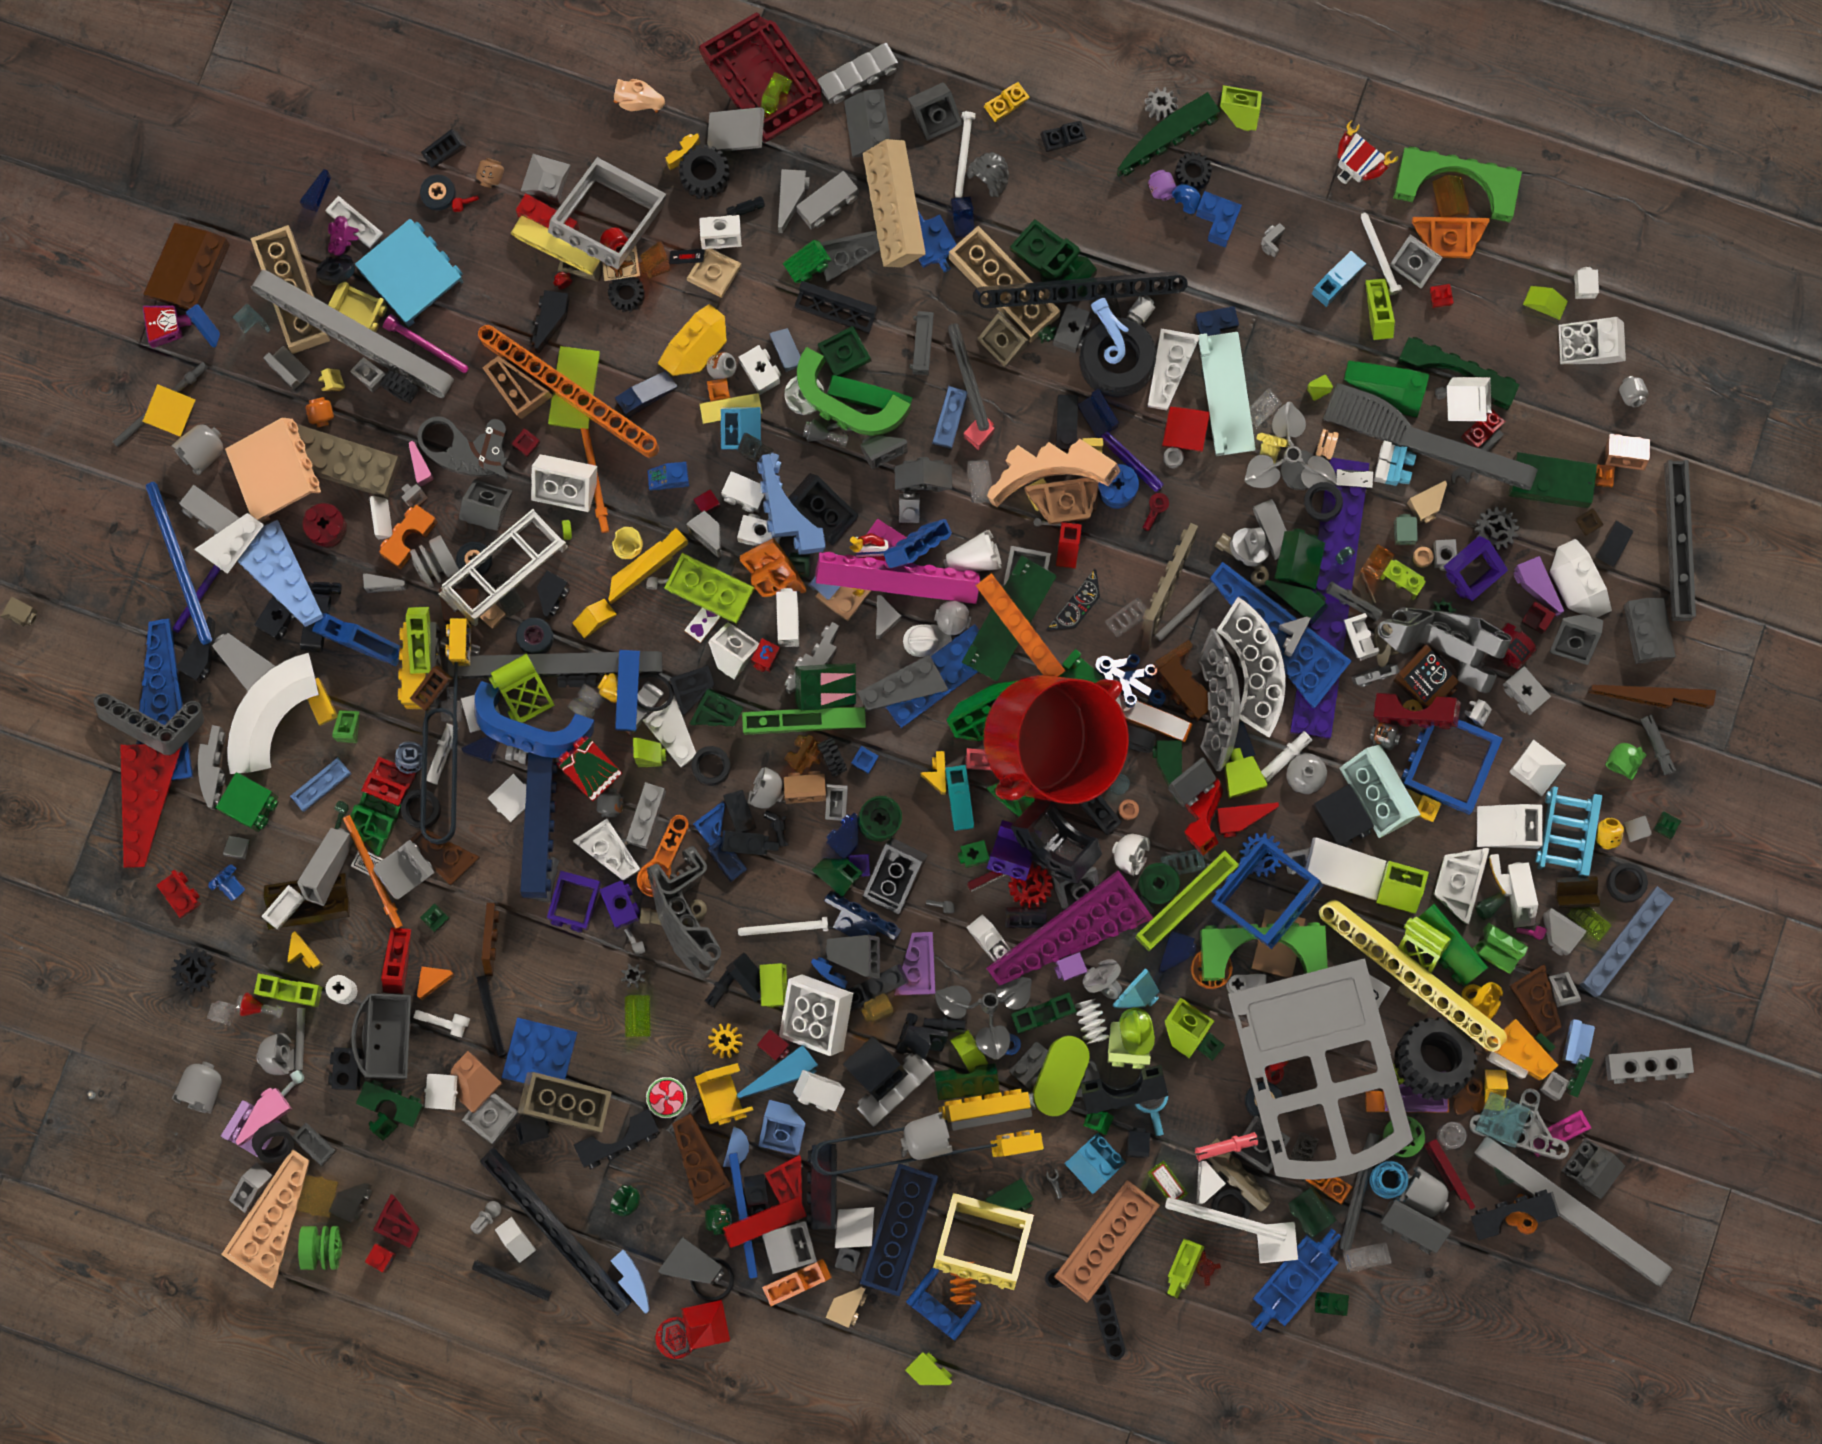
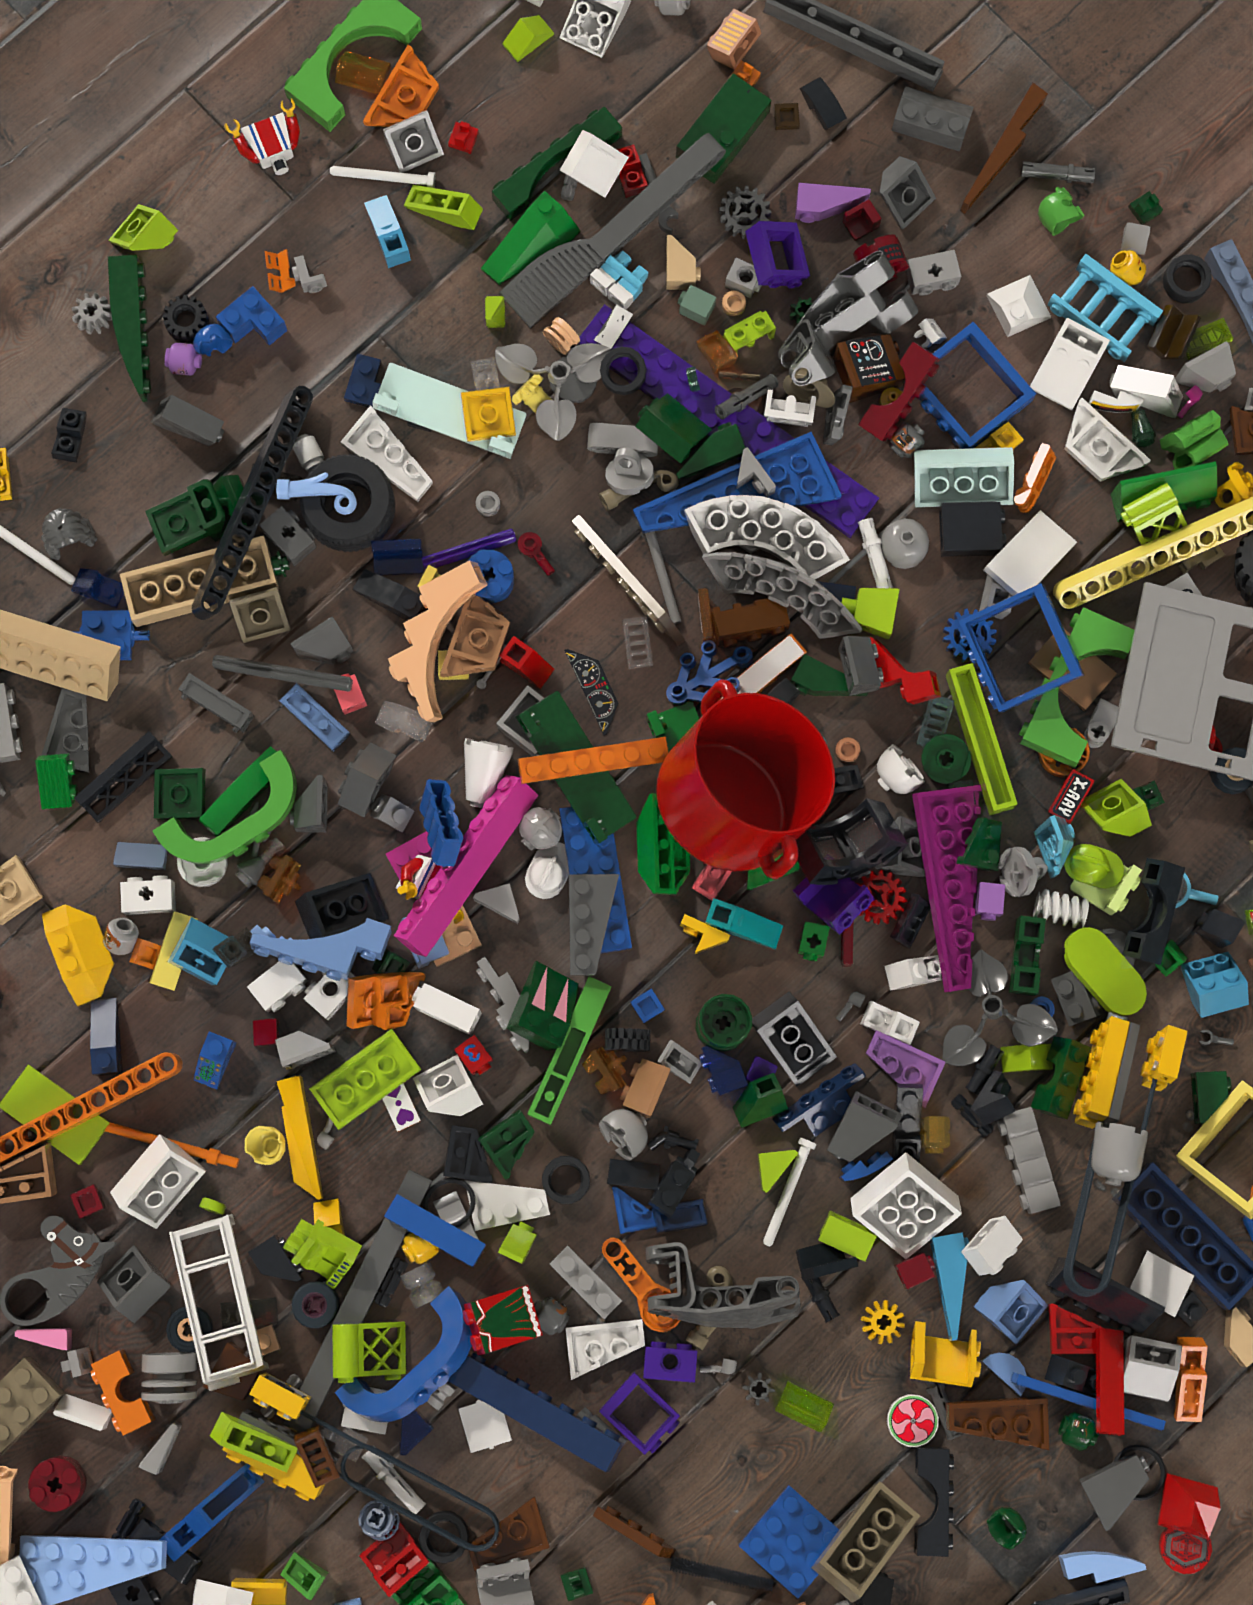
camera: 65 degrees left, 0 degrees up
(574, 620) = (322, 1250): none -> lime hips
(795, 907) = (772, 1166): none -> lime slope
(821, 456) = (282, 880): none -> clear orange hips
(875, 1068) = (999, 1170): black brick -> none
(943, 940) = (890, 1022): none -> white slope
(1005, 395) = (323, 644): none -> dark grey slope
(1108, 942) = (983, 845): none -> dark green wing
(1117, 214) = (188, 421): none -> dark grey slope
(1177, 951) = (1029, 779): clear blue slope -> none
(1180, 989) = (1071, 795): none -> tile
(1186, 429) = (464, 473): red slope -> none
(1236, 819) = (919, 637): red slope -> none
(1238, 422) = (488, 414): none -> yellow tile
(1260, 228) = (283, 261): none -> orange piece
(1402, 887) = (1078, 507): lime slope -> none
(1407, 845) = (1035, 479): none -> orange hinge
(1579, 580) = (843, 157): white wedge -> none

